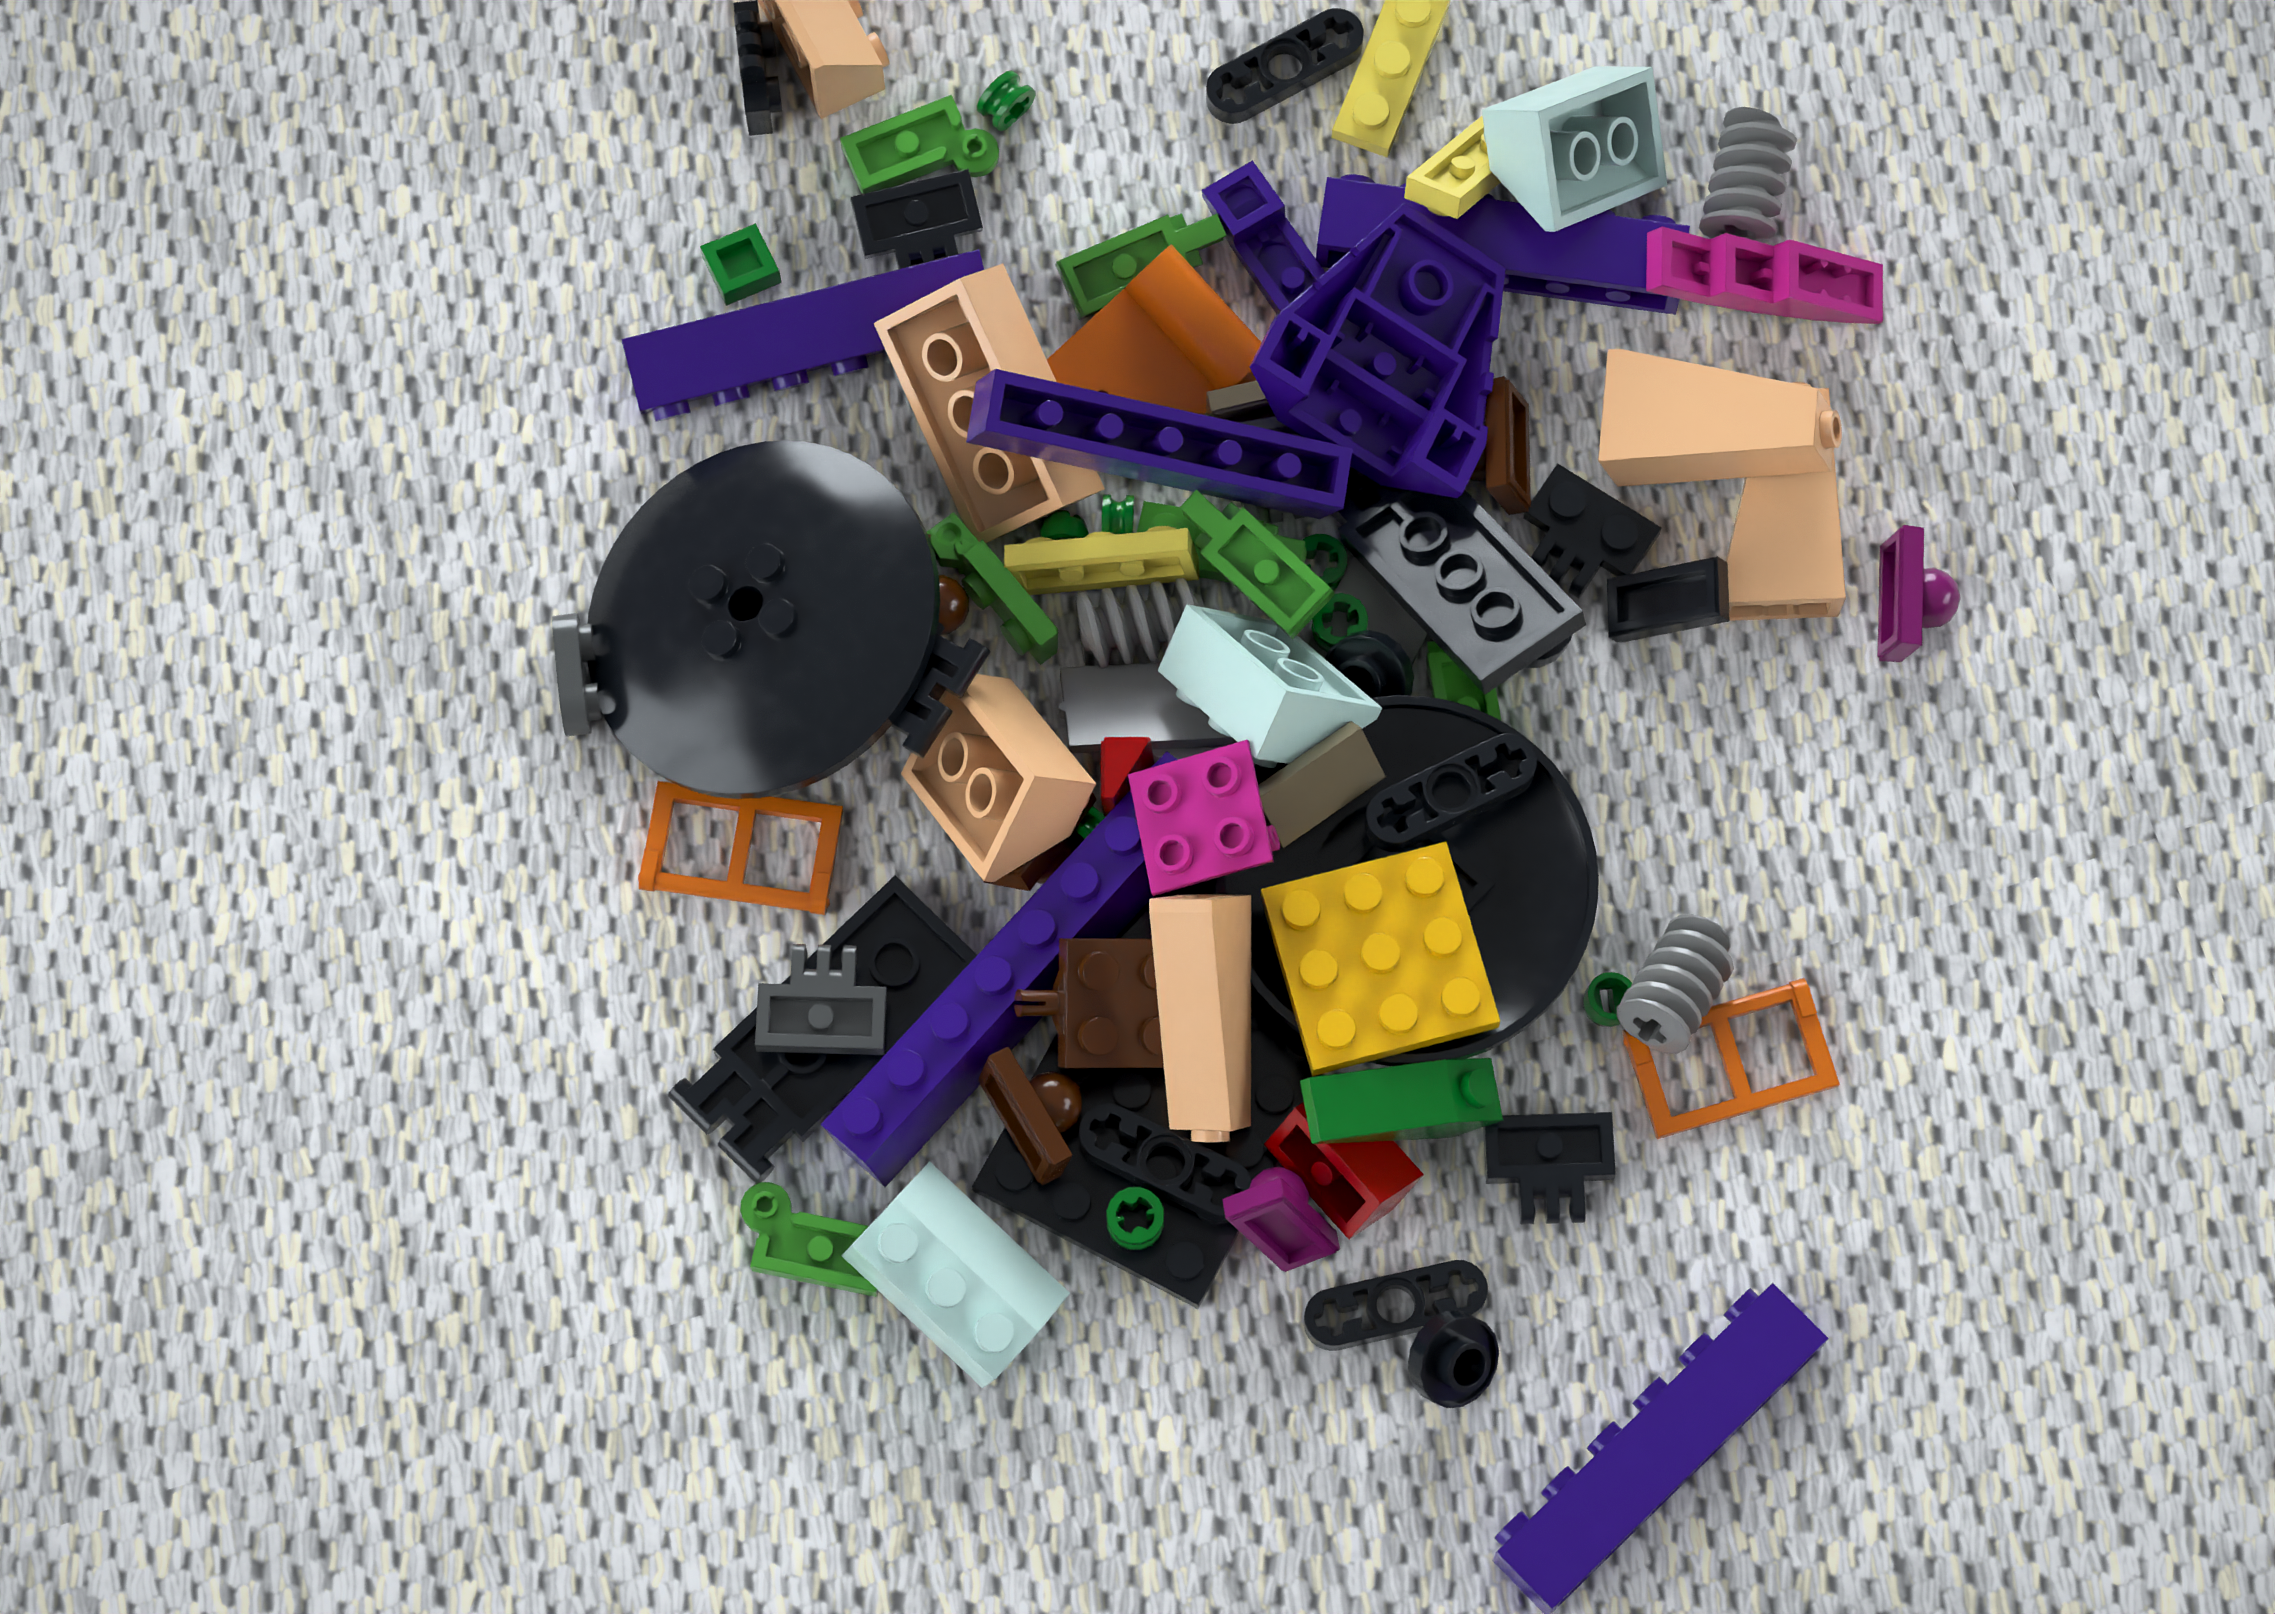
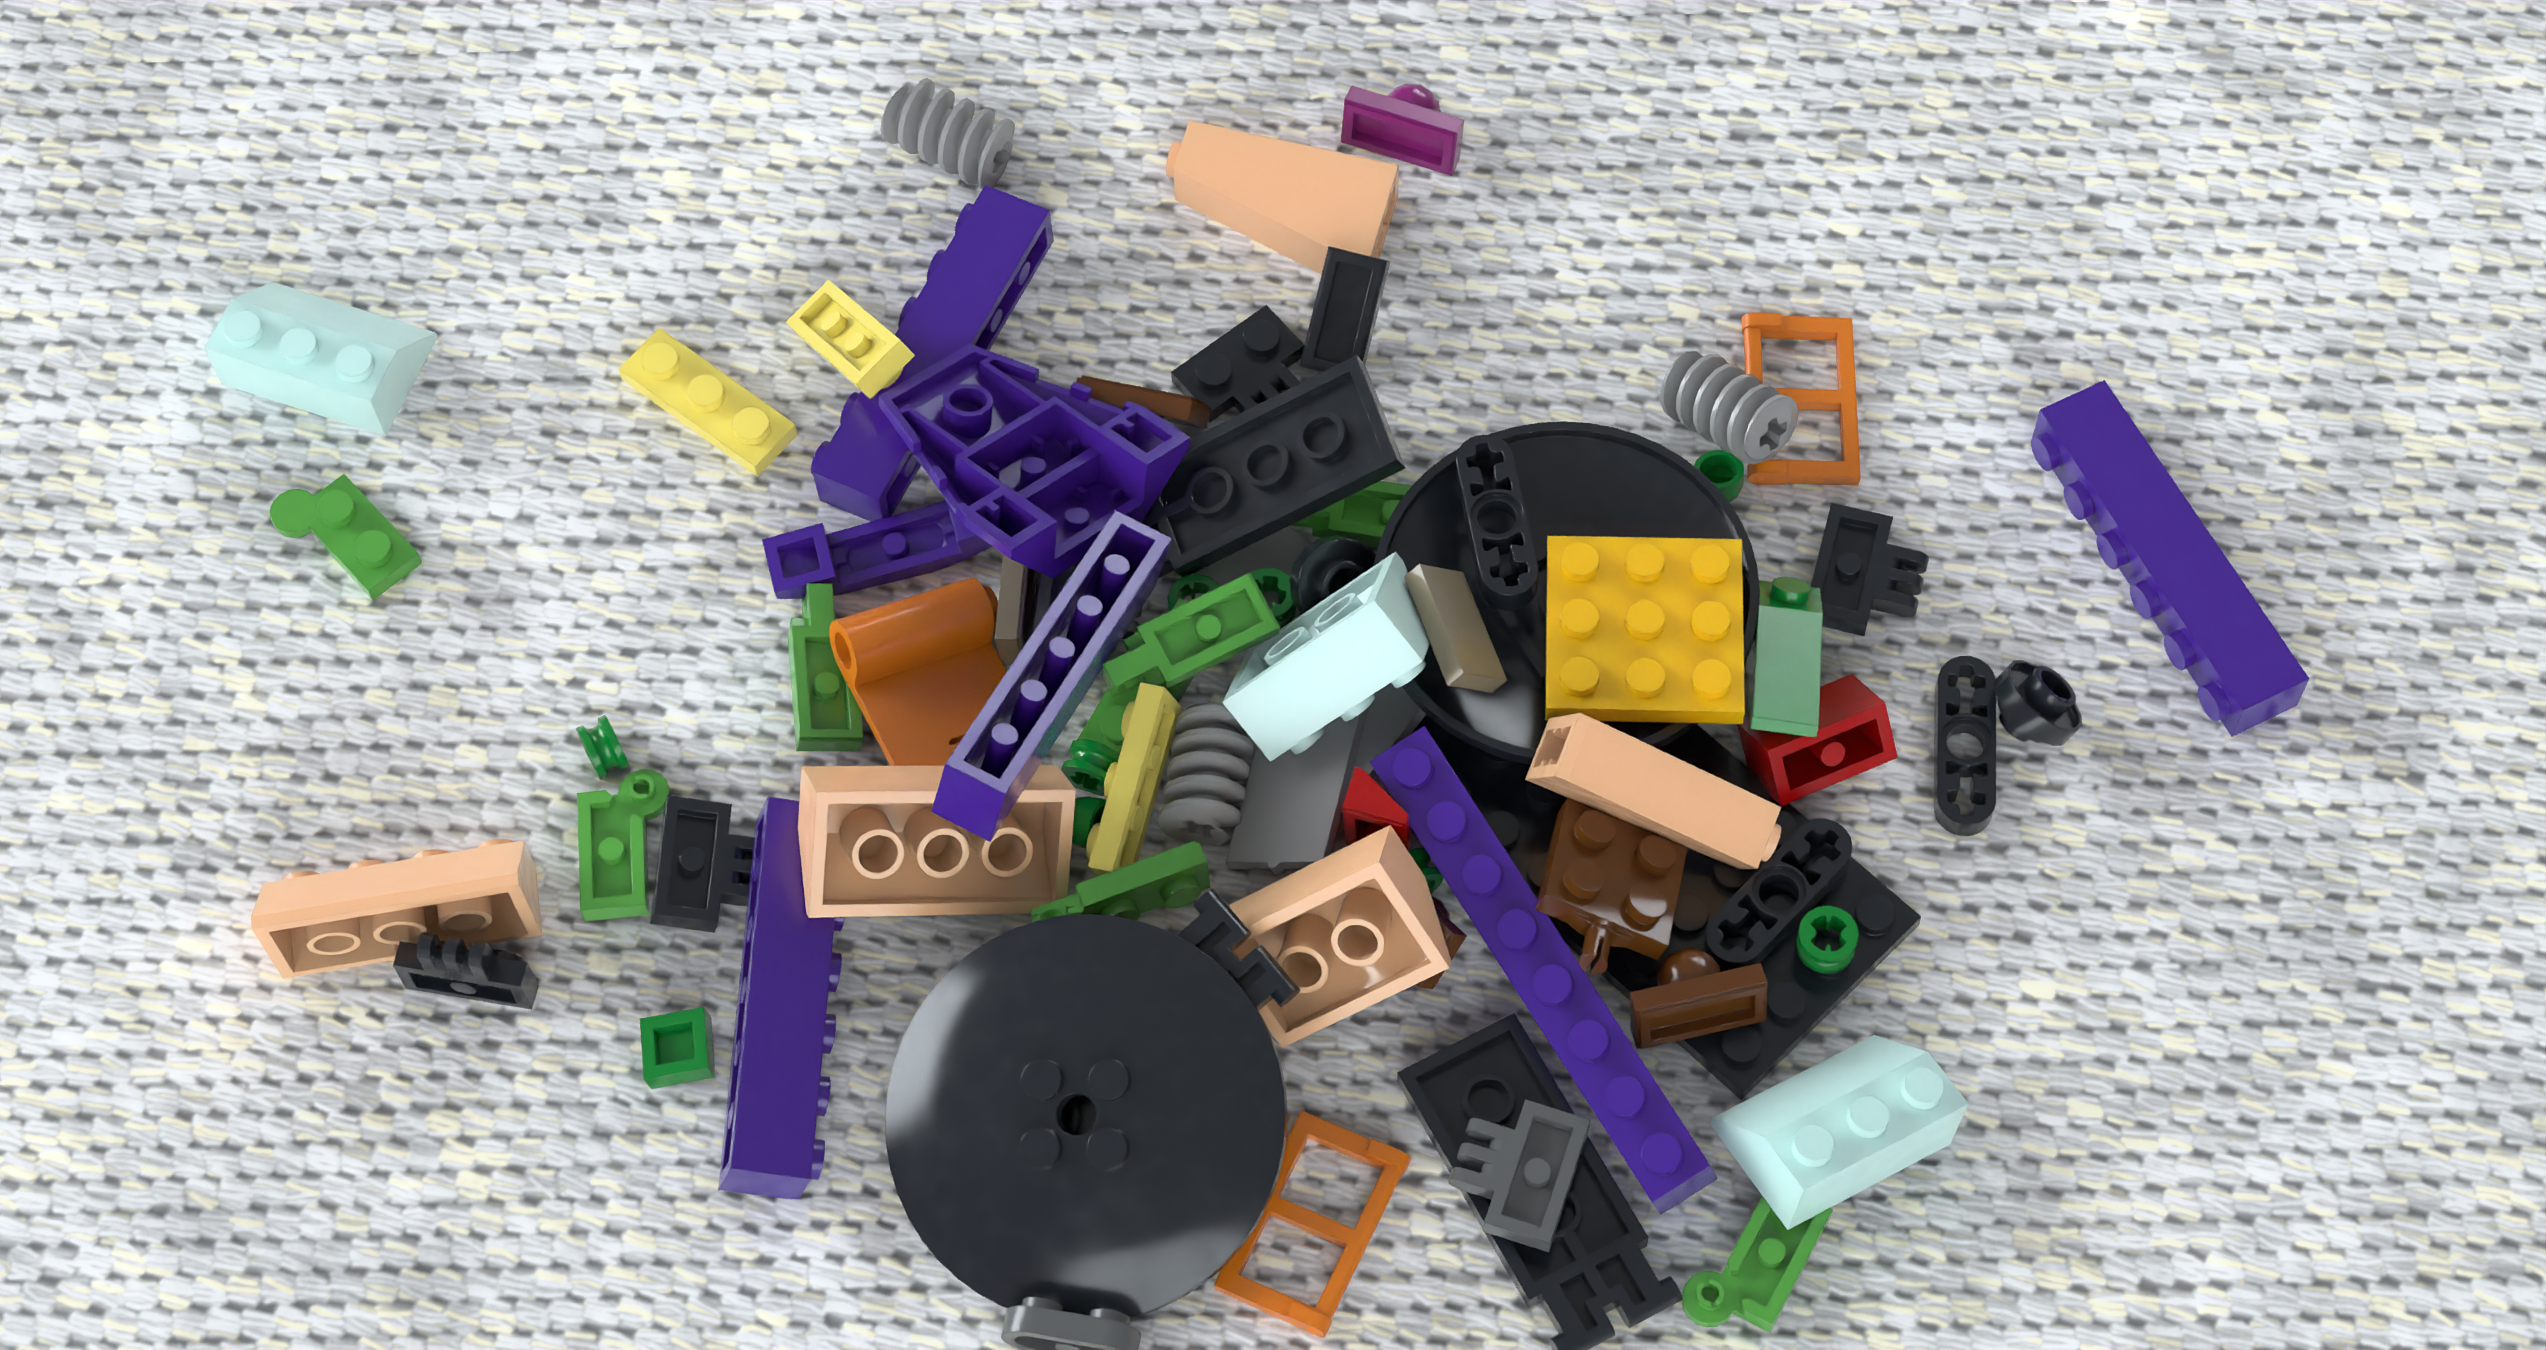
camera: 70 degrees left, 10 degrees down
(1201, 818) = (1461, 735): dark pink hinge -> none
(1280, 1220) = (1862, 802): magenta tile -> none
(1290, 42) = (651, 475): black beam -> none
(1578, 144) = (867, 246): light aqua slope -> none
(1708, 423) = (1190, 220): light nougat slope -> none
(1764, 278) = (1056, 145): dark pink slope -> none

